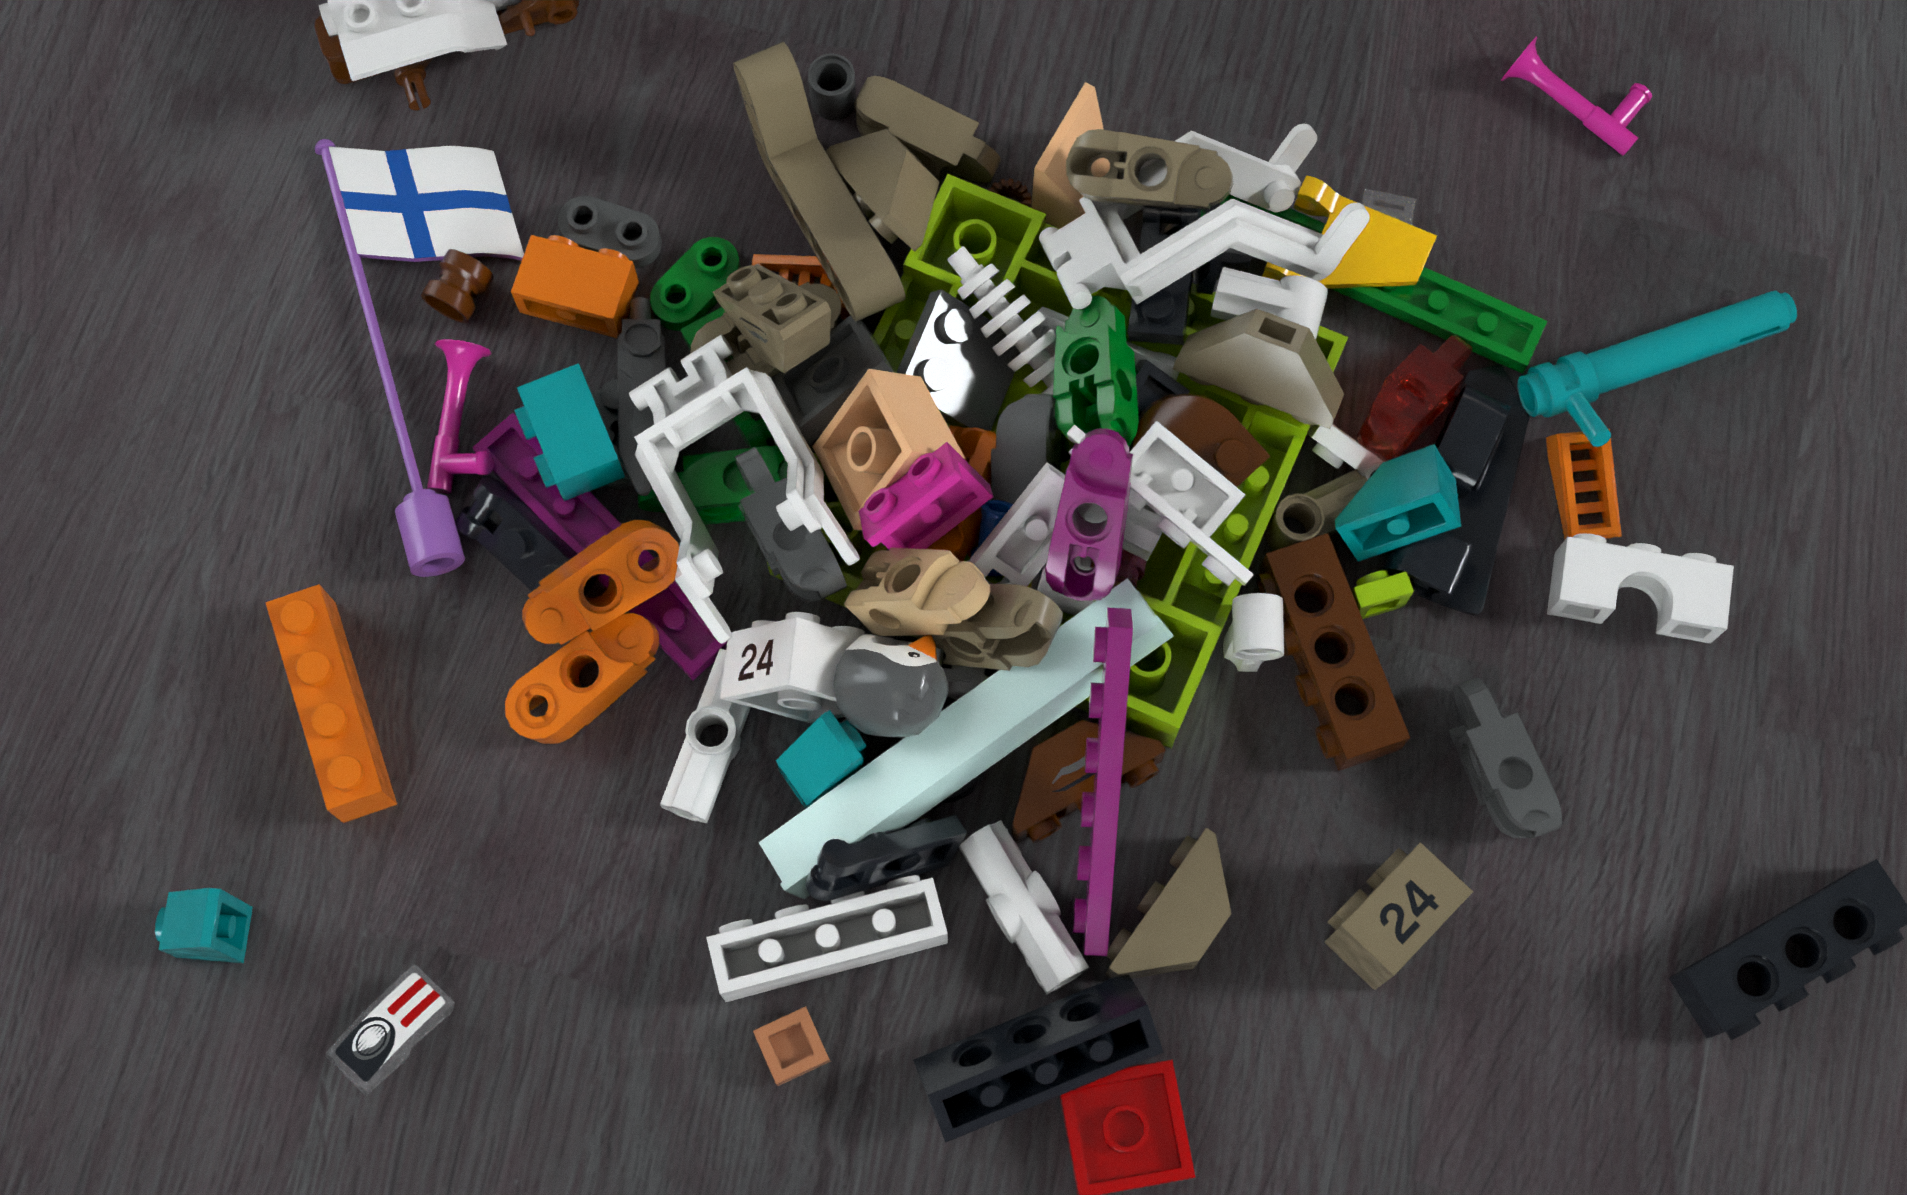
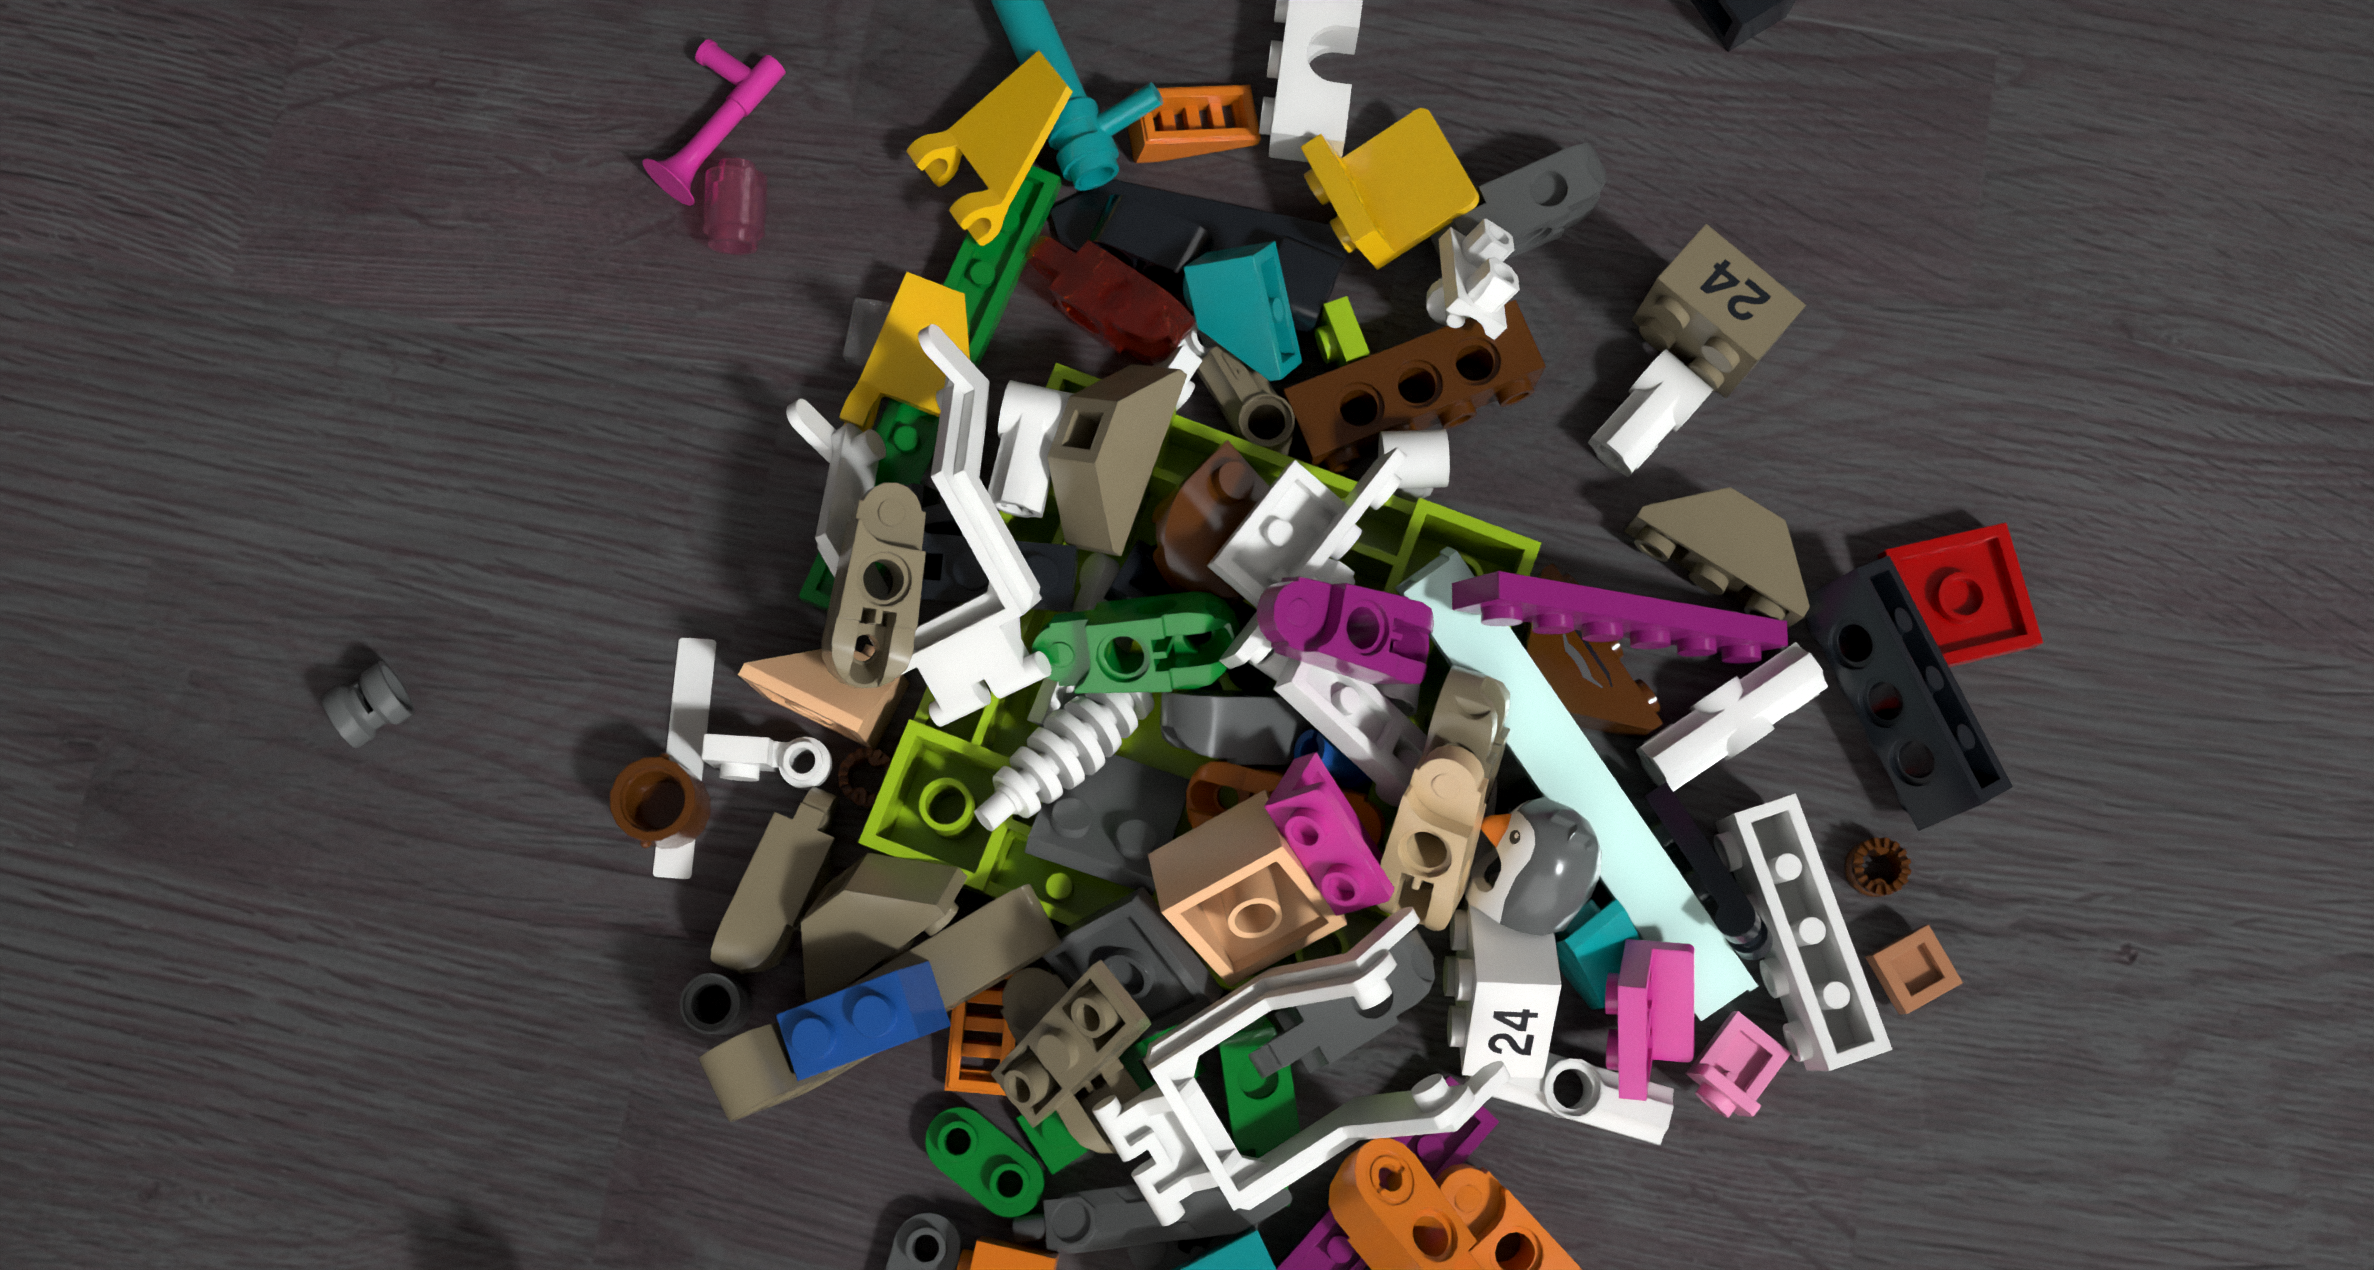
camera: 95 degrees left, 5 degrees up
(718, 878) = (1736, 1067): none -> bright pink bracket
(766, 785) = (1653, 1010): none -> dark pink bracket
(805, 168) = (863, 1020): none -> blue brick
(867, 1026) = (1877, 847): none -> reddish brown bush
(992, 47) = (660, 803): none -> reddish brown piece
(1027, 111) = (745, 756): none -> white plate
(1031, 73) = (686, 734): none -> white sticker
(1318, 872) = (1658, 403): none -> white piece
(1427, 695) = (1474, 278): none -> white hips
(1498, 109) = (734, 206): none -> clear pink brick
(1515, 638) = (1391, 187): none -> yellow bracket
(1553, 309) = (999, 141): none -> yellow flag

